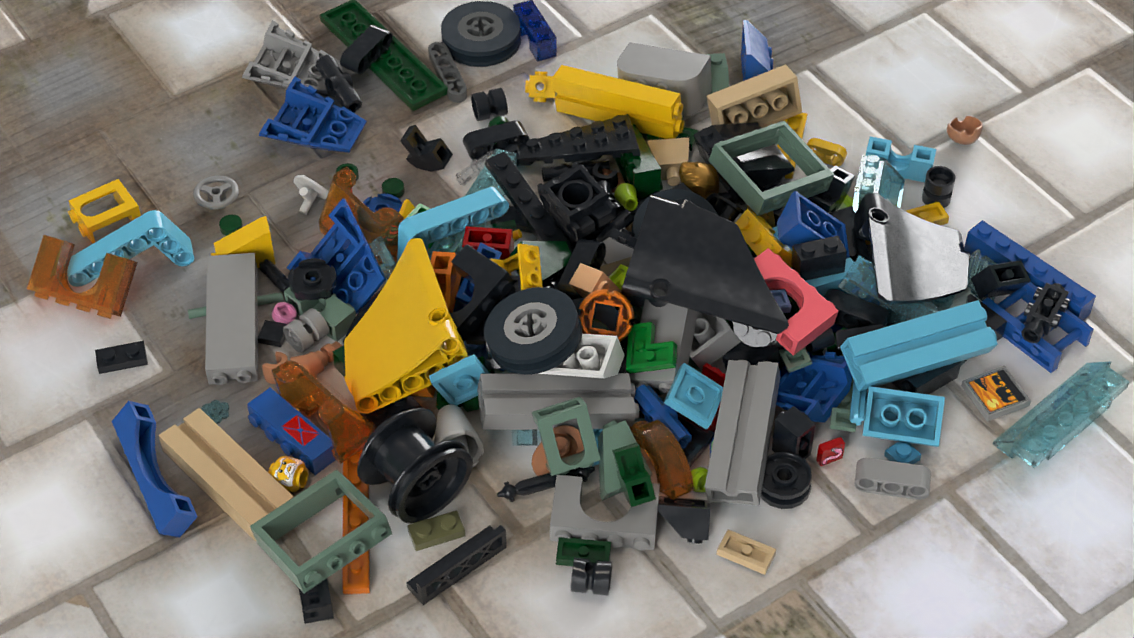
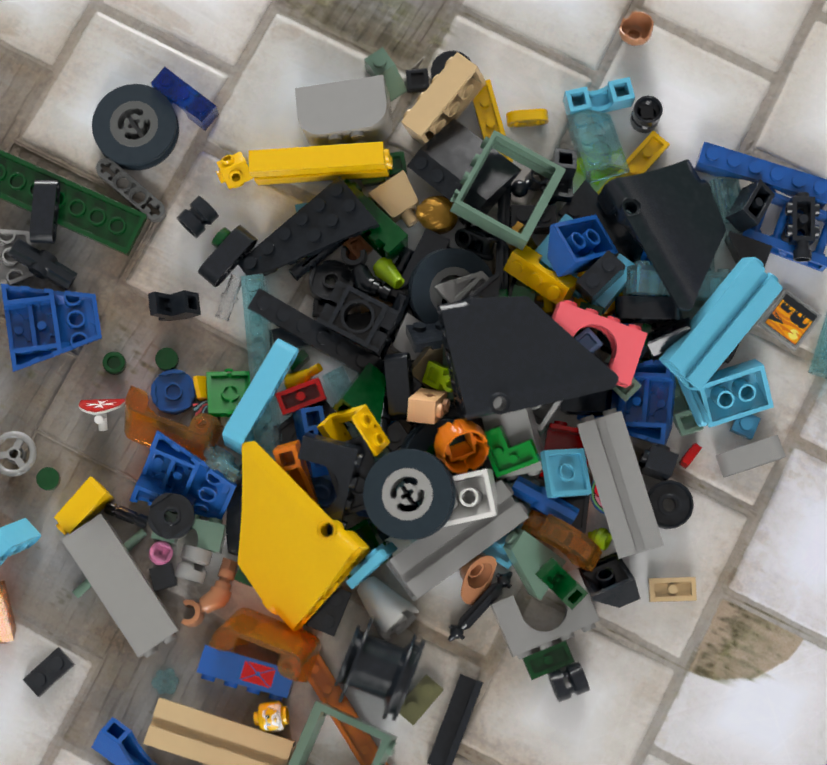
camera: 30 degrees left, 30 degrees up
(559, 413) = (475, 567): sand green panel -> none
(755, 53) = (413, 38): slope -> none

